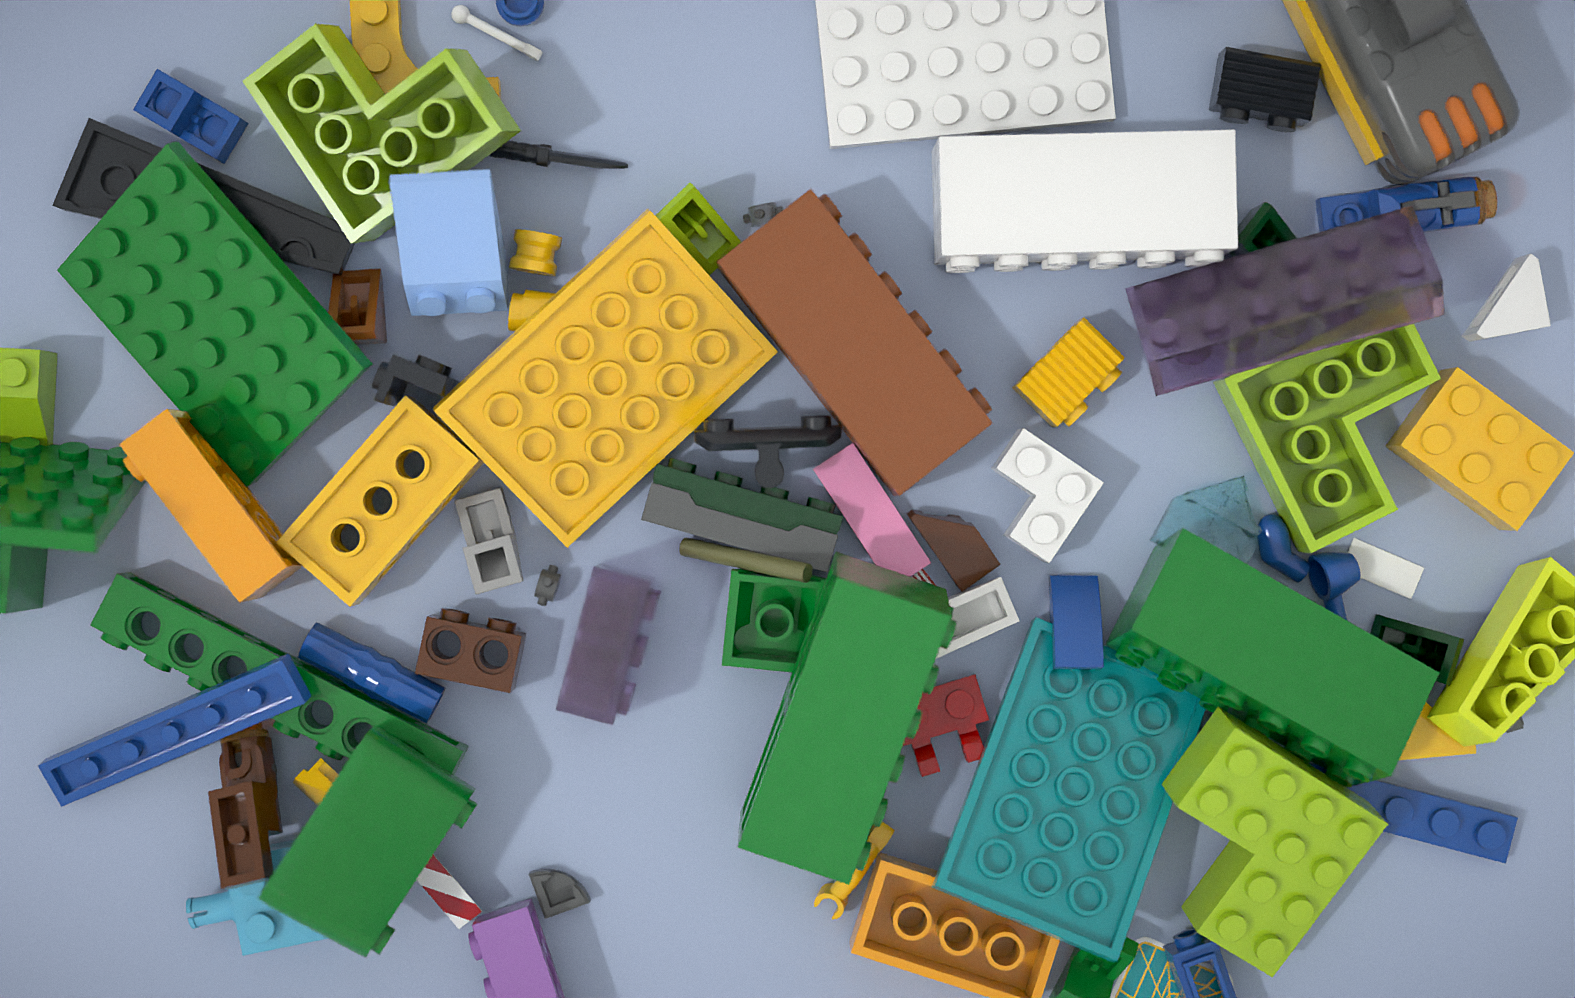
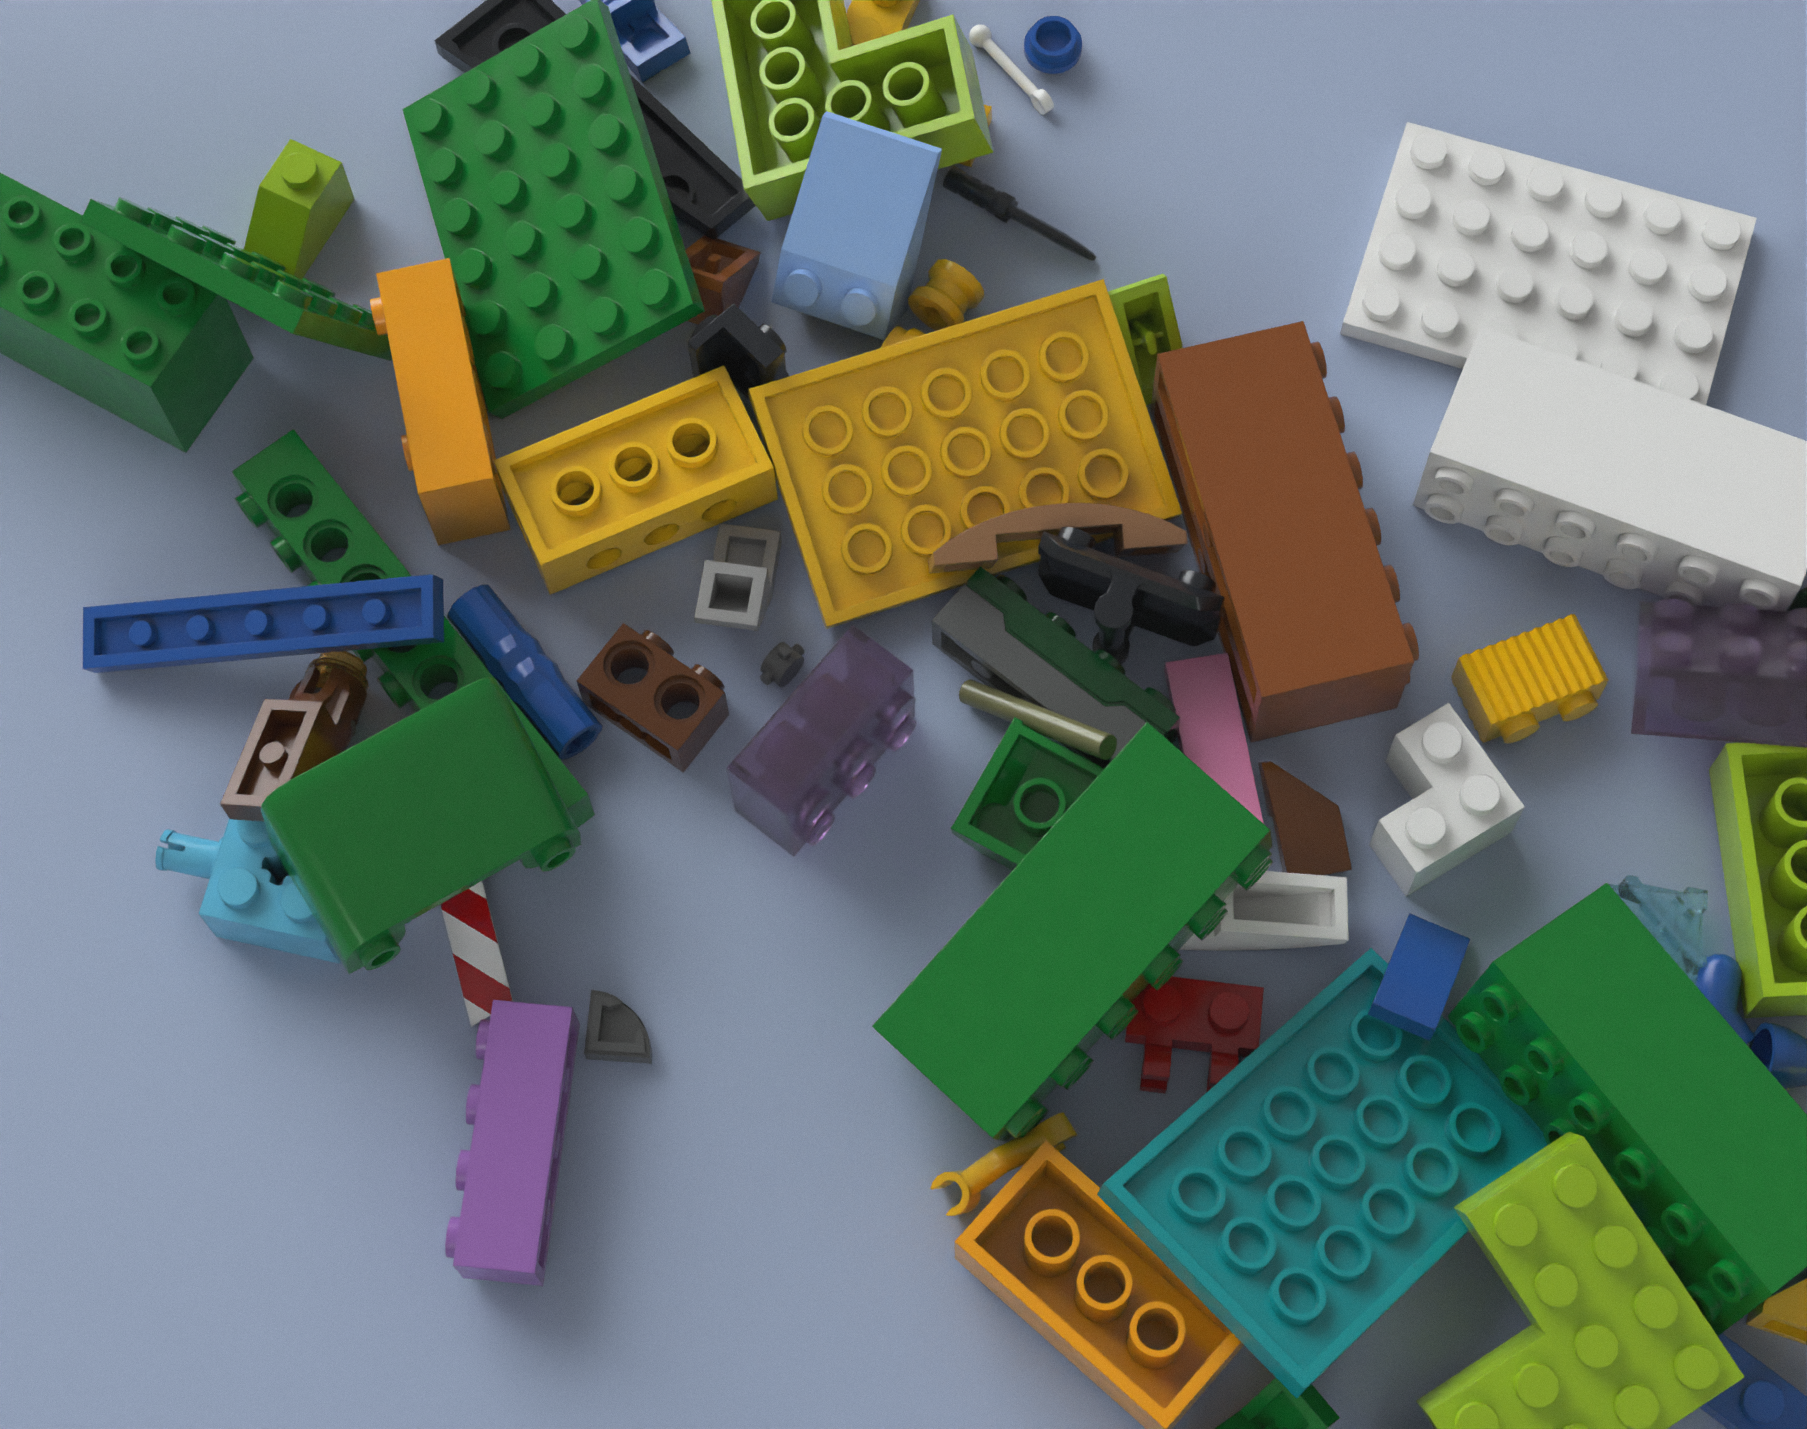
camera: 25 degrees right, 20 degrees down
(646, 454) = (1132, 531): none -> medium nougat slope

